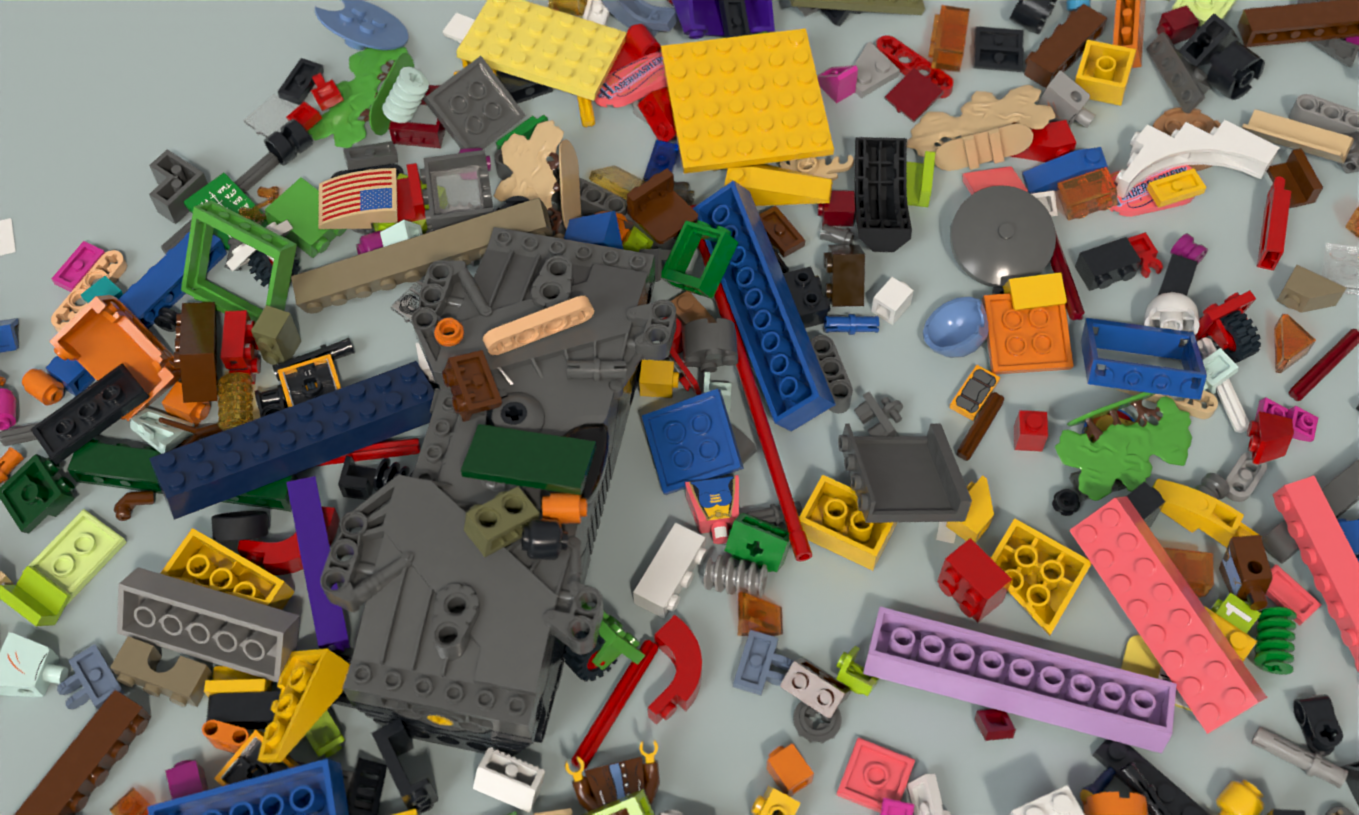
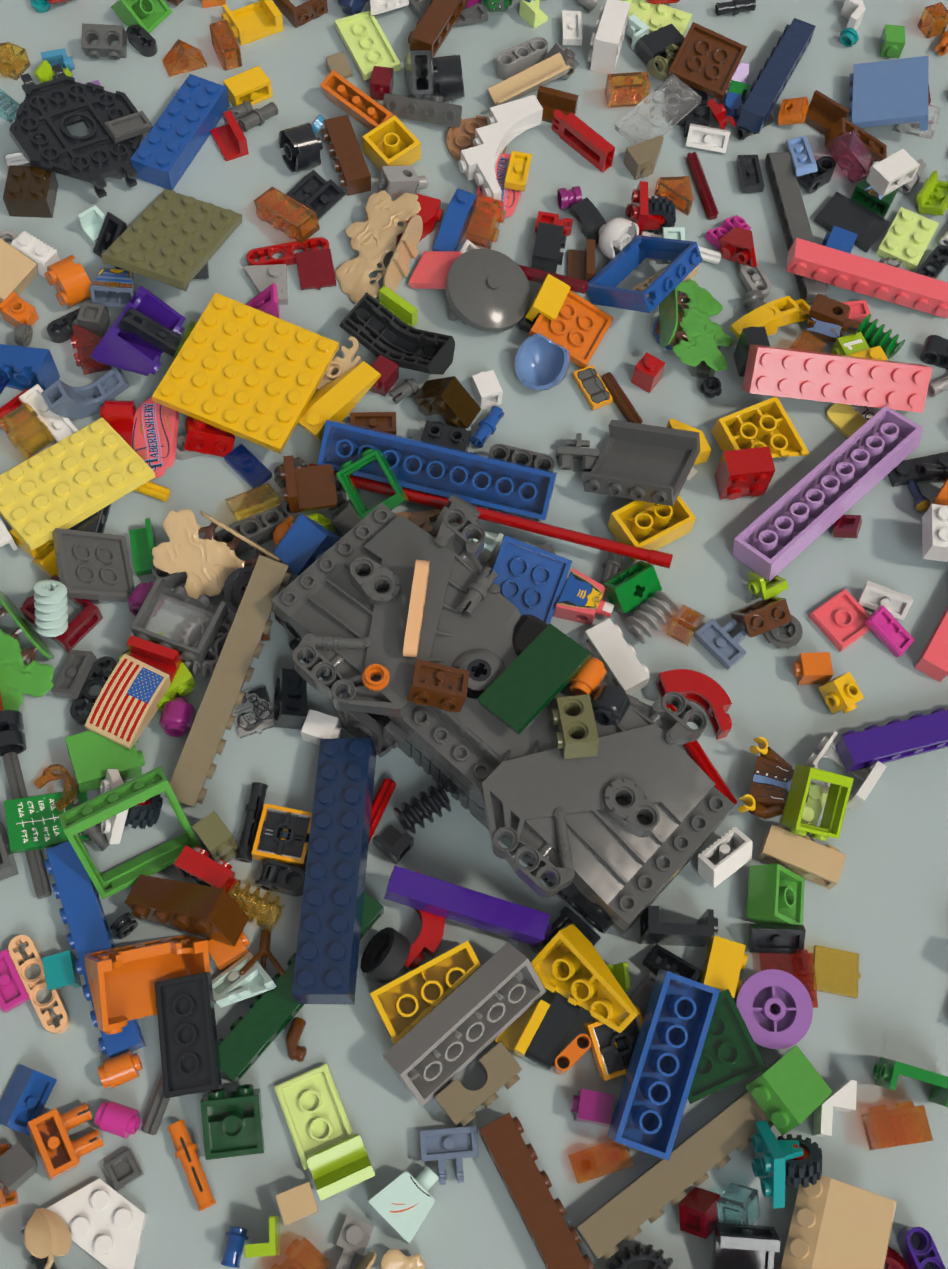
camera: 65 degrees left, 5 degrees up
(400, 232) = (193, 688): light aqua panel -> none
(1118, 305) = (582, 263): none -> reddish brown panel

